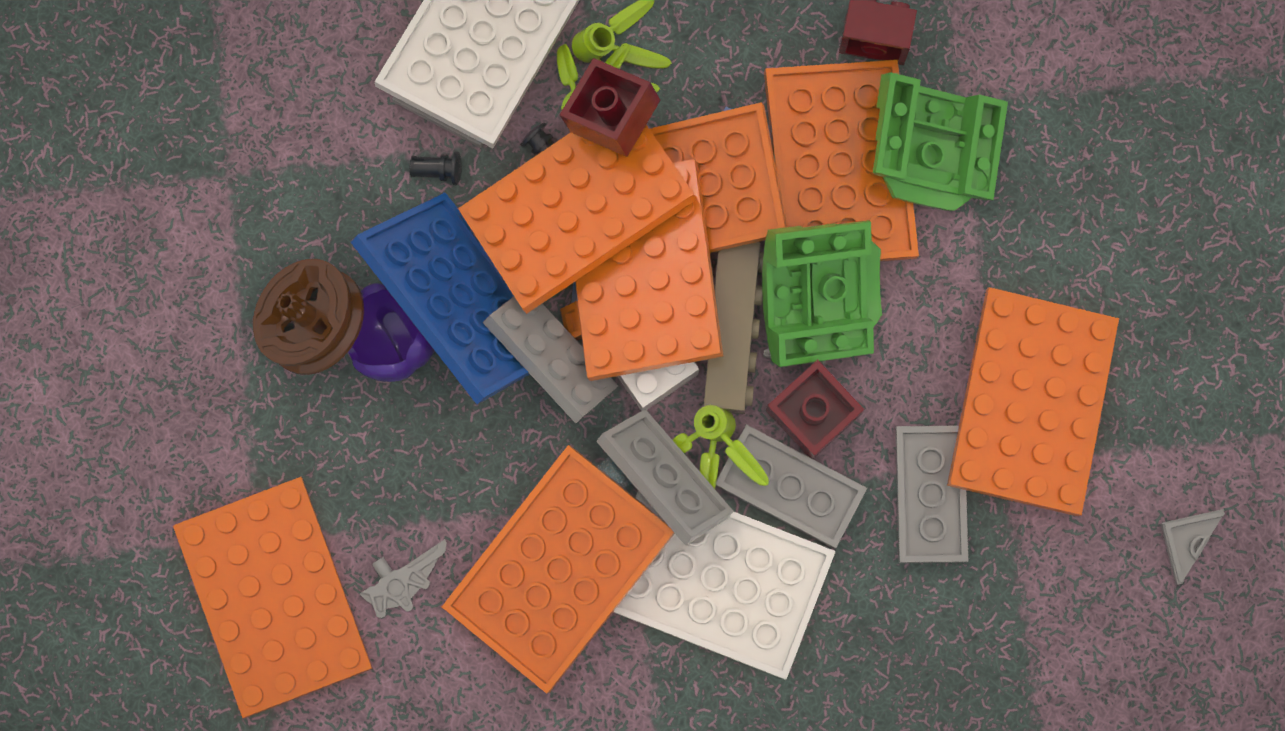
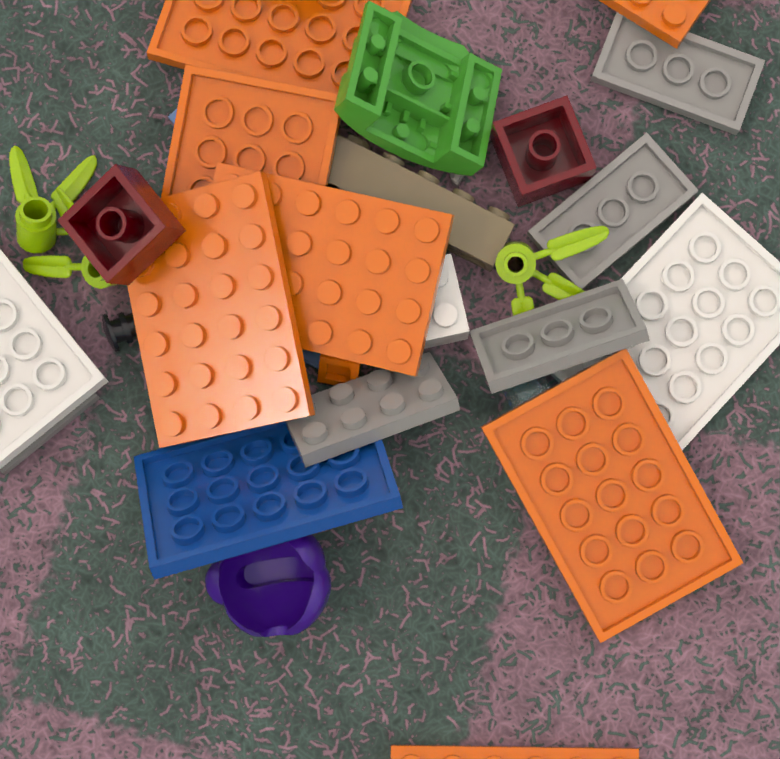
camera: 70 degrees left, 0 degrees up
(322, 327) = (234, 653): reddish brown wheel -> none
(401, 585) = (555, 680): light grey piece -> none
(437, 167) = (102, 454): black pin -> none

